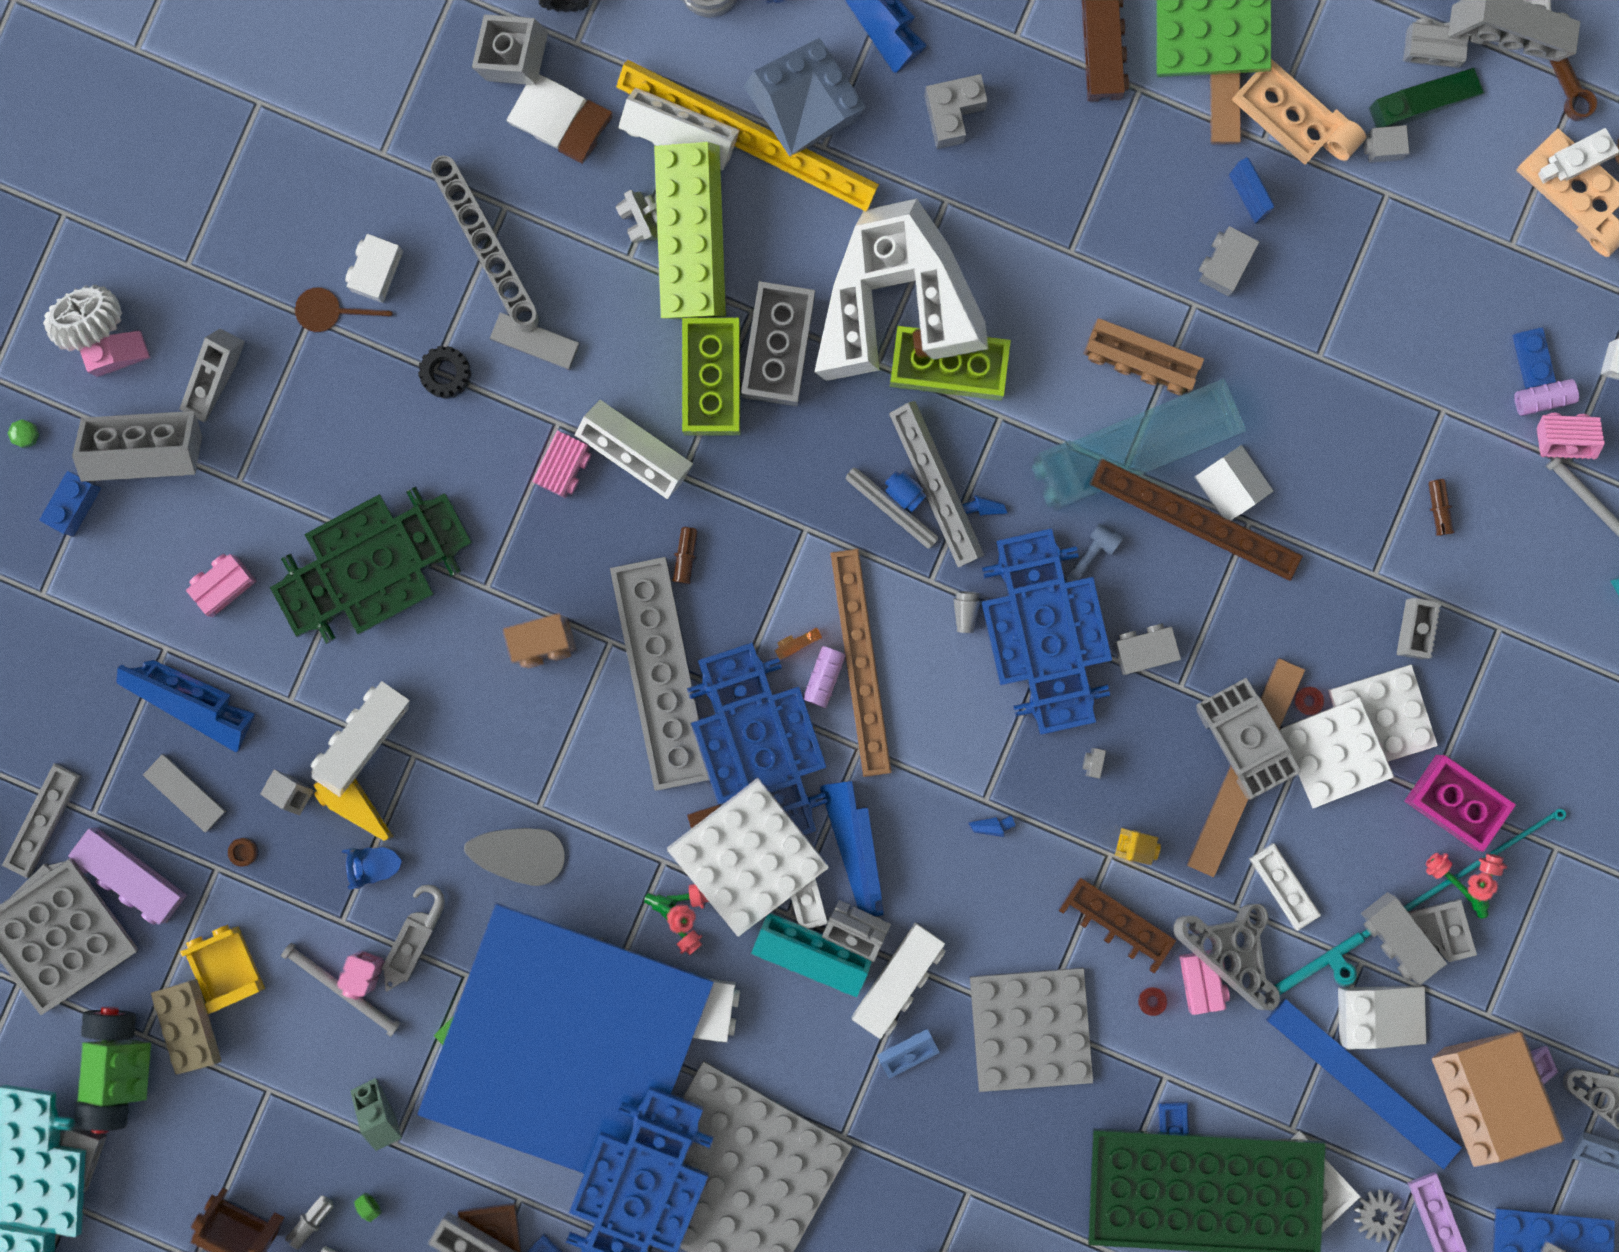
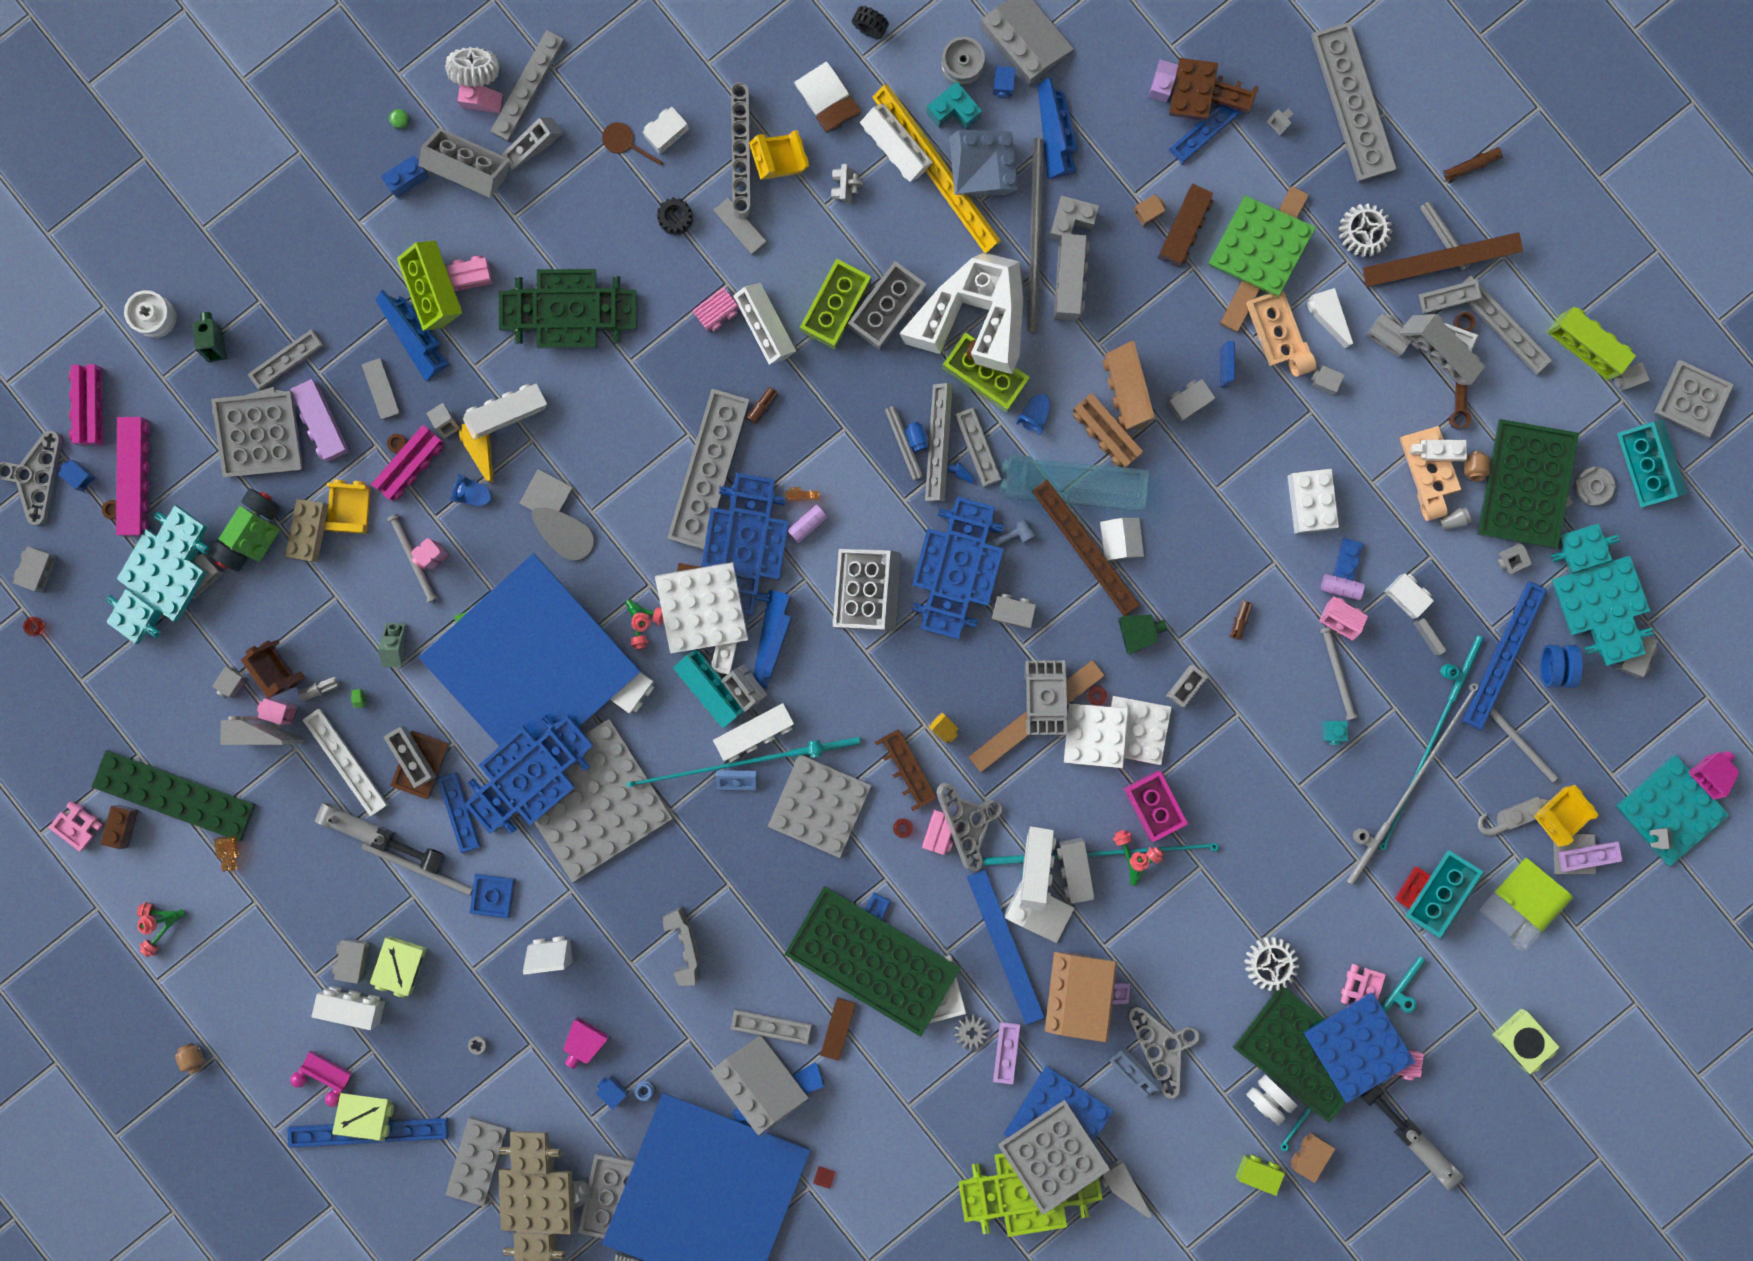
camera: 25 degrees right, 0 degrees up
(166, 304) = (527, 85): none -> light grey plate
(176, 628) = (429, 285): none -> lime brick
(270, 871) = (408, 463): none -> dark pink brick
(412, 939) = (471, 551): light grey plate -> none
(468, 814) = (546, 492): none -> light grey tile
(510, 49) = (818, 40): light grey brick -> none
(537, 224) = (779, 155): none -> yellow panel
(539, 640) = (645, 408): medium nougat brick -> none
(690, 230) = (869, 207): lime brick -> none
(728, 38) = (954, 102): none -> teal brick
(860, 662) = (834, 527): medium nougat tile -> none
(917, 154) = (1035, 218): none -> light grey axle
(945, 721) = (867, 589): none -> light grey slope
(966, 610) = (916, 529): light grey cone -> none
(987, 961) = (814, 749): none -> teal piece
(989, 463) = (978, 447): none -> light grey tile
(992, 826) = (861, 669): blue bar -> none
(993, 185) = (1069, 278): none -> light grey brick
(1039, 382) = (1035, 413): none -> blue piece
(1046, 45) = (1149, 210): none -> medium nougat brick
(1094, 762) = (943, 663): light grey plate -> none
(1142, 285) = (1128, 387): none -> medium nougat slope
(1284, 887) = (1021, 801): white tile -> none
(1321, 590) = (1140, 631): none -> dark green torso
(1343, 57) = (1329, 314): none -> white slope
(1354, 964) = (1037, 868): none -> white brick
(1425, 98) = (1366, 365): dark green slope -> none
(1446, 929) = (1105, 879): light grey wing -> none
(1451, 307) = (1313, 501): none -> white brick

